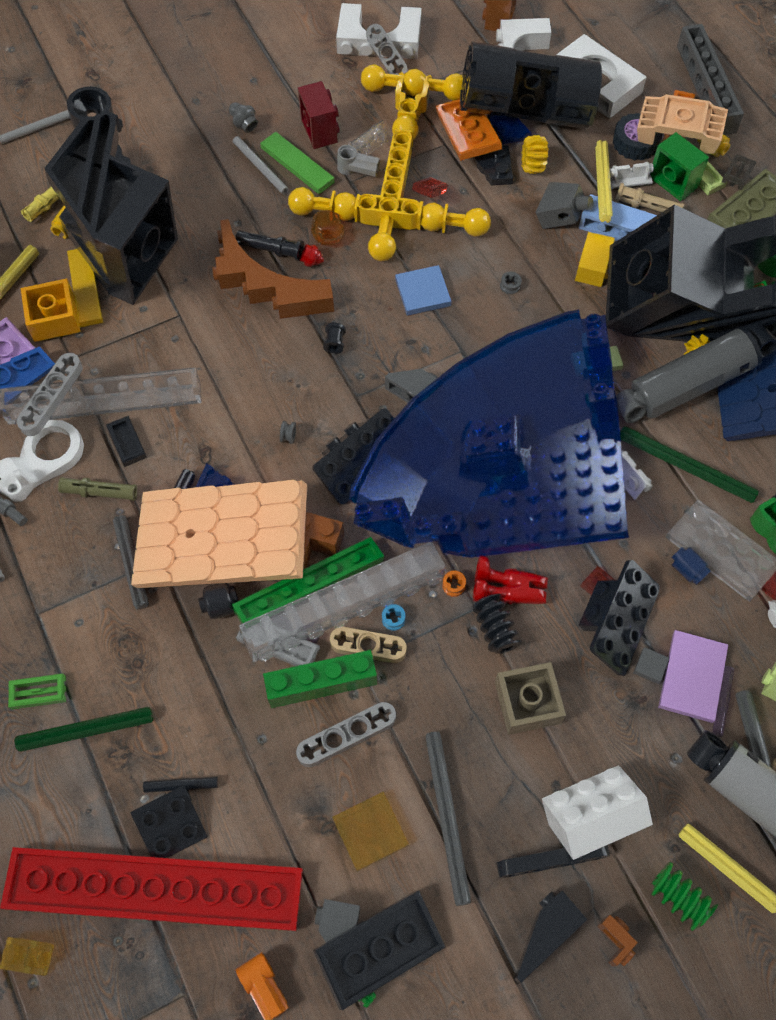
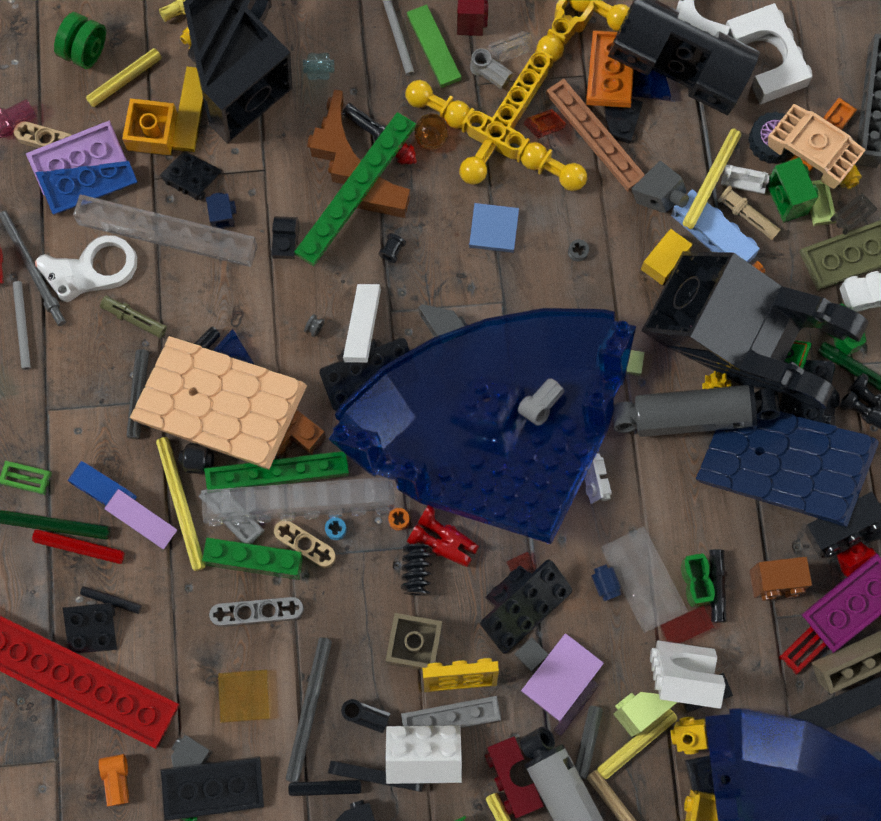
camera: 20 degrees right, 10 degrees up
(45, 391) = (117, 214): light grey beam -> none
(106, 342) = (190, 175): none -> black hinge
(122, 741) = (78, 546): none -> red axle
(126, 441) = (173, 279): black tile -> none
(127, 669) = (96, 484): none -> blue beam
(150, 358) = (221, 210): none -> dark blue brick
(182, 684) = (140, 519): none -> lavender tile
(196, 209) = (318, 66): none -> clear light blue piece
(220, 655) = (180, 503): none -> light yellow axle
(225, 361) = (285, 237): none -> black brick
(276, 297) = (355, 189): none -> green plate
(336, 411) = (362, 323): none -> white tile
(479, 184) = (595, 134): none -> nougat plate
(503, 896) = (325, 788): none -> black axle
(514, 797) = (368, 716): none -> black piece
(534, 154) = (660, 124): yellow gear -> none
(544, 423) = (537, 406): none -> light grey piece
(598, 709) = (460, 675): none -> yellow plate
(614, 752) = (463, 714): none -> light grey tile
(689, 464) = (652, 490): dark green axle -> none
(715, 820) = (519, 799): none -> dark red arch

